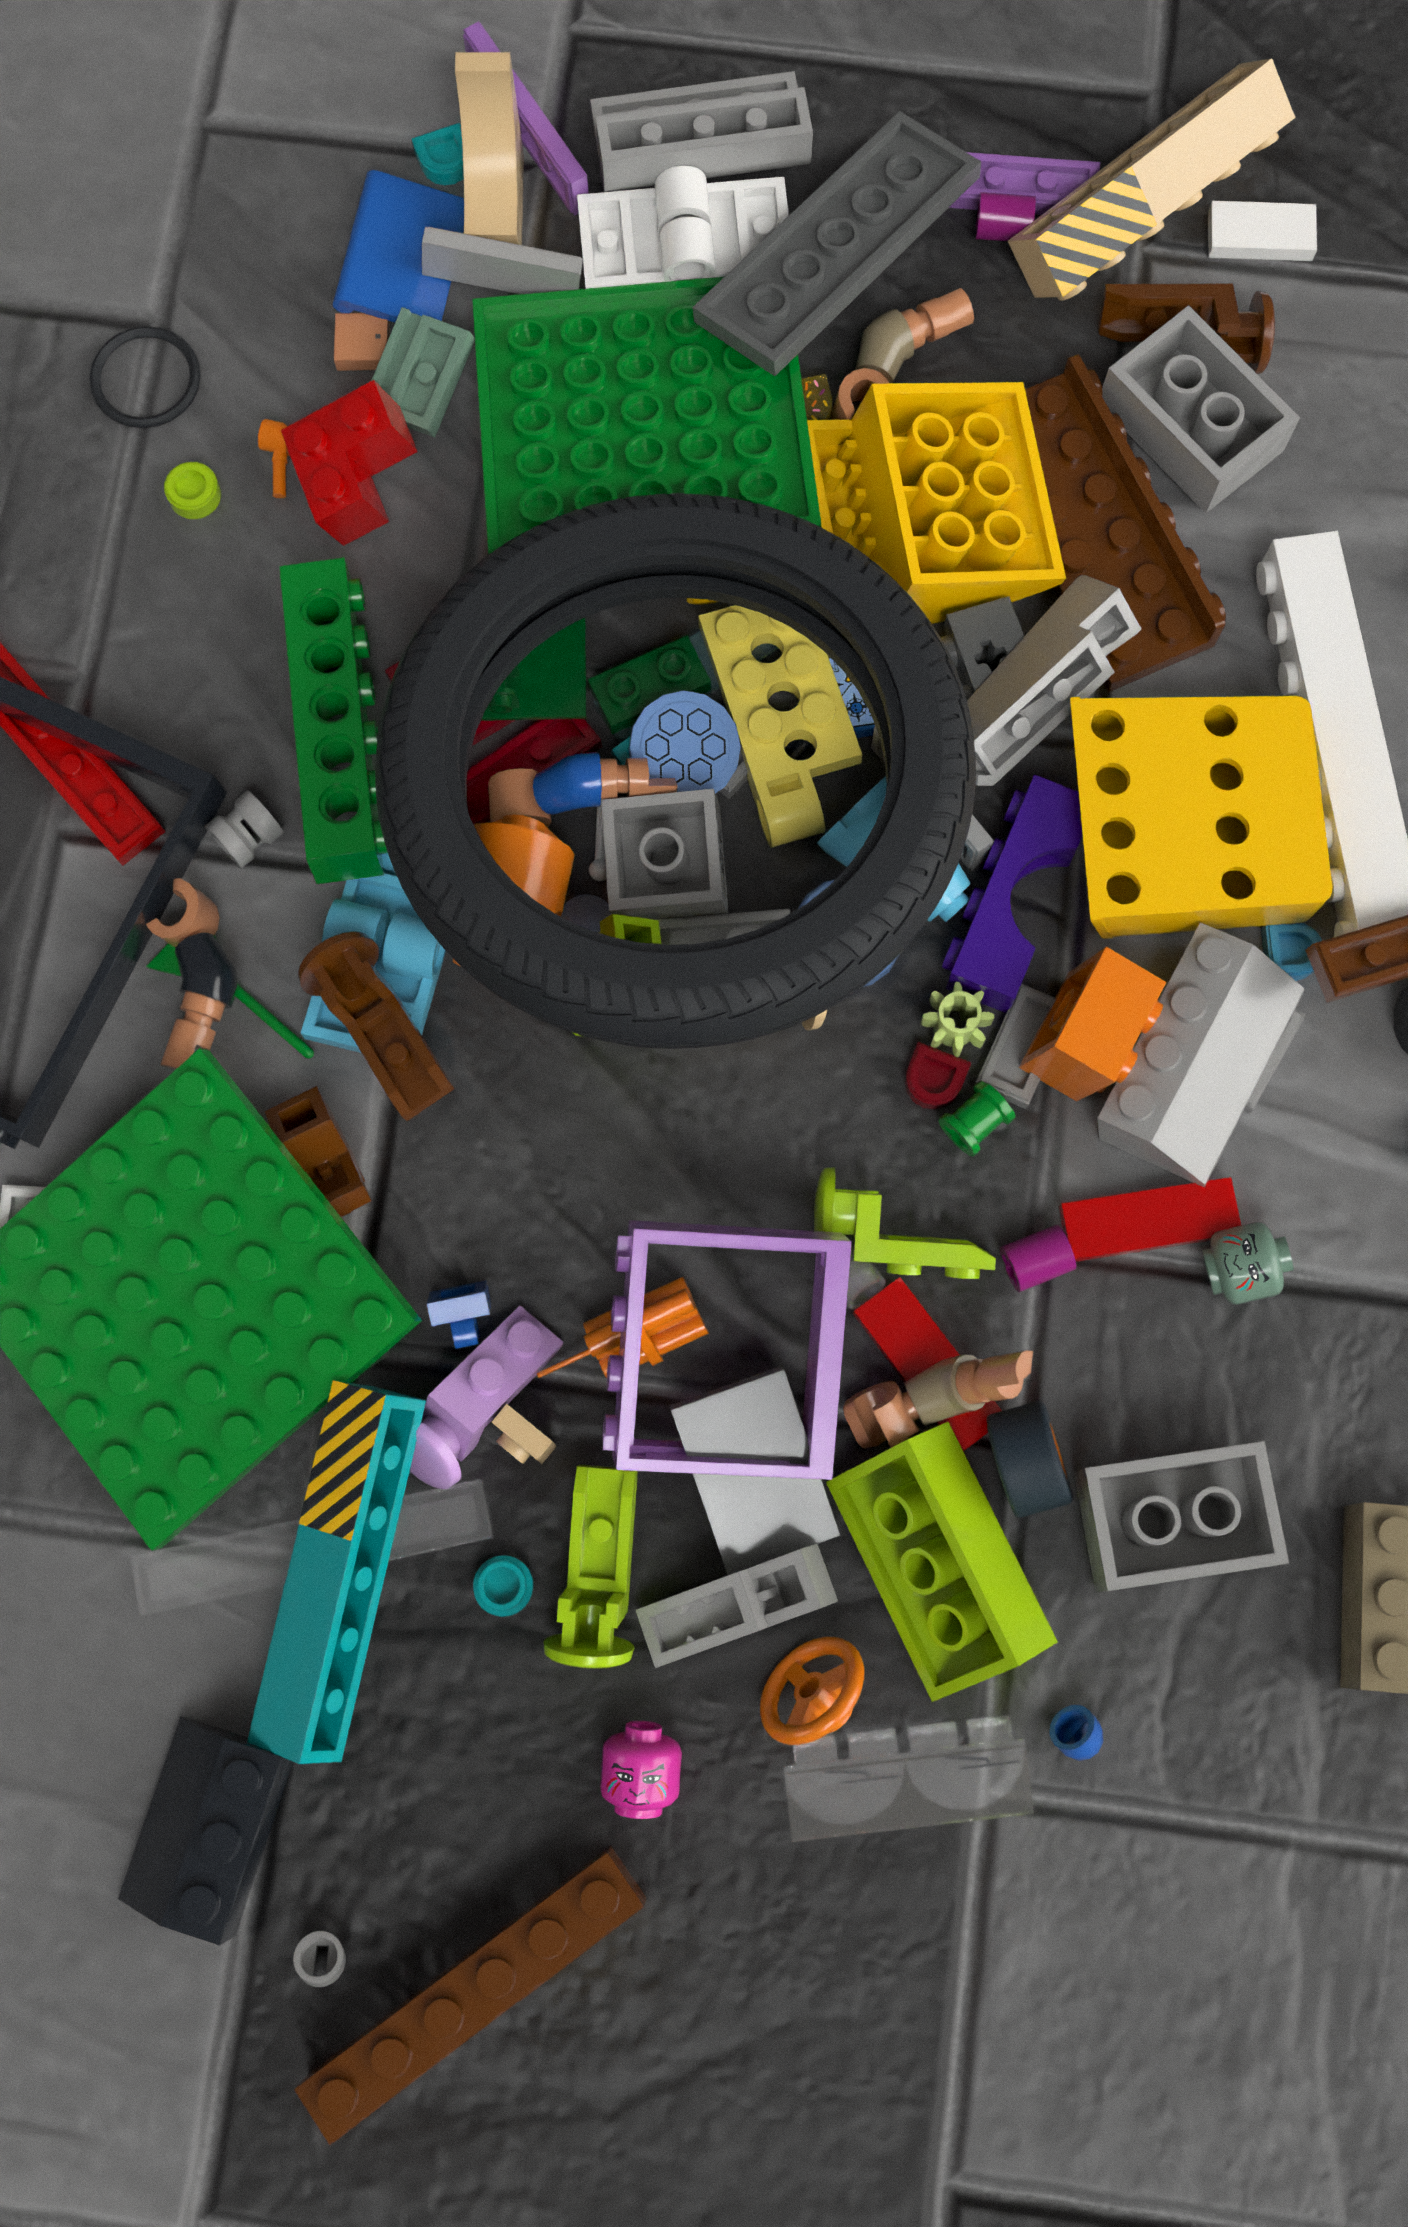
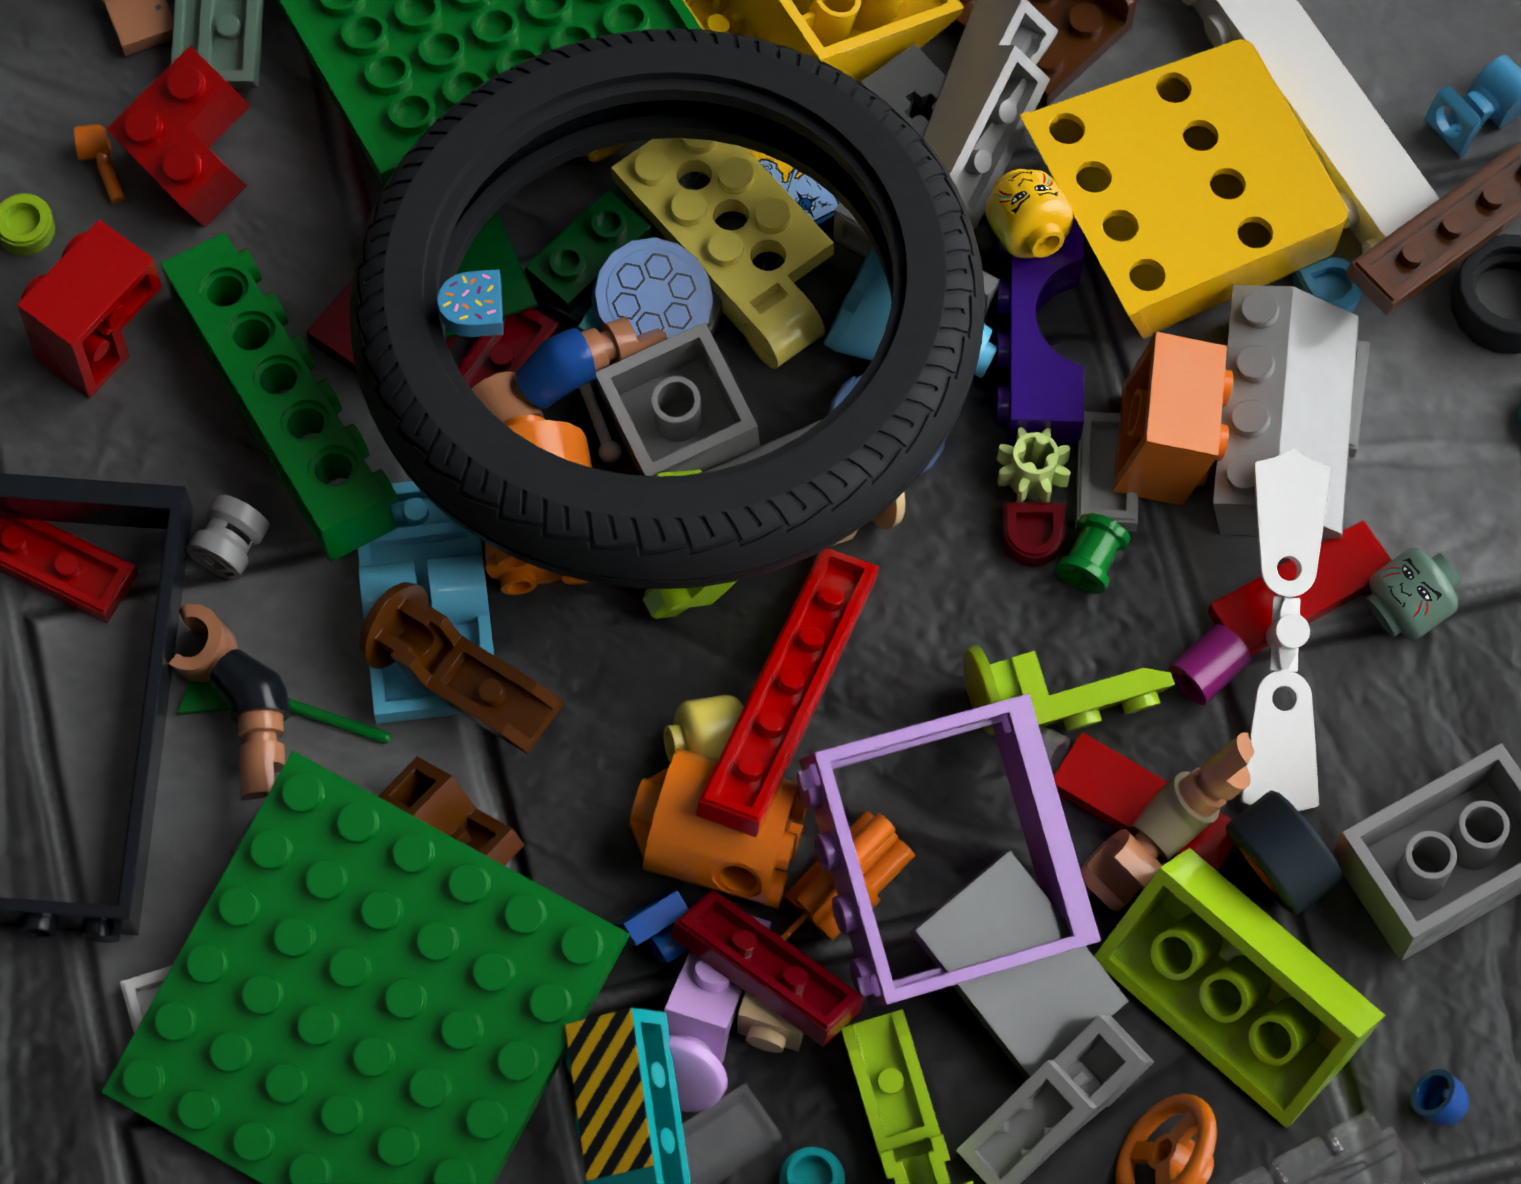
camera: 25 degrees left, 10 degrees down
(200, 580) = (84, 304): none -> red brick
(492, 707) = (472, 303): none -> dark azure tile
(533, 1391) = (767, 967): none -> dark red tile
(543, 1247) = (707, 853): none -> orange cylinder
(577, 1161) = (703, 726): none -> light yellow head
(646, 1155) = (787, 693): none -> red tile
(1042, 790) = (1029, 213): none -> yellow head
(1157, 1164) = (1290, 524): none -> white piece

